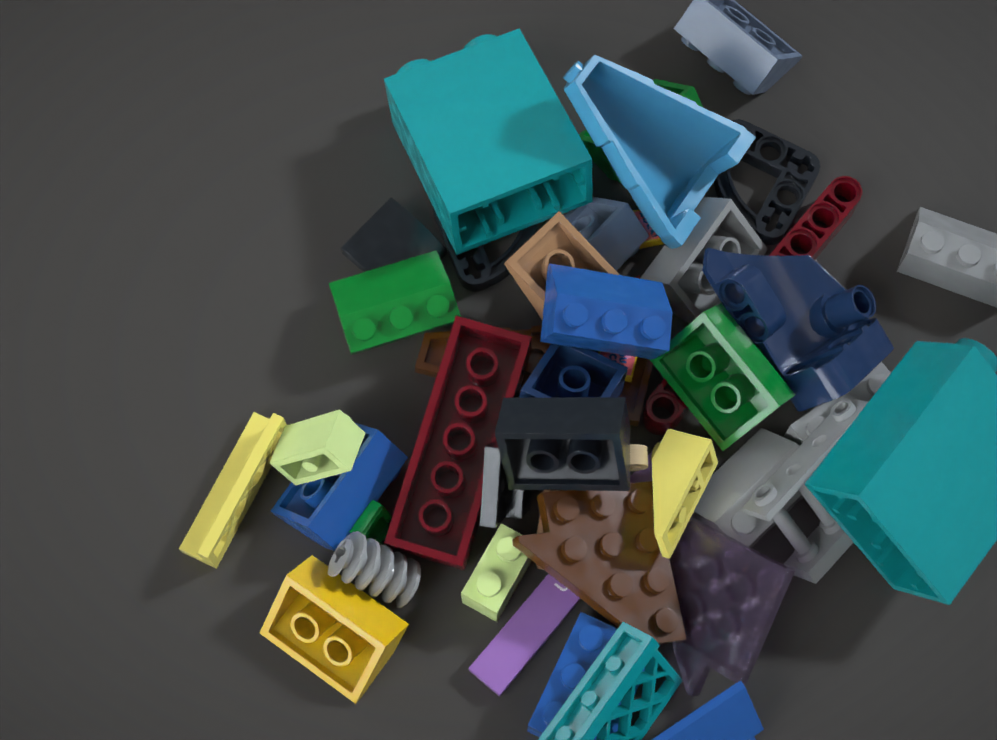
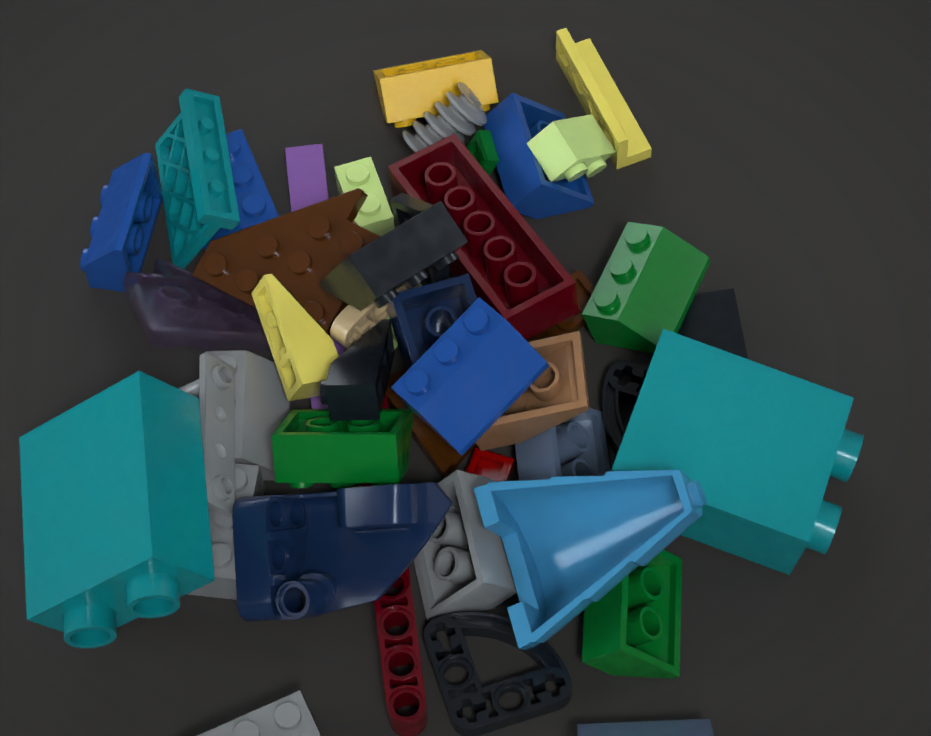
camera: 135 degrees right, 10 degrees down
(672, 399) = (360, 377): none -> black slope

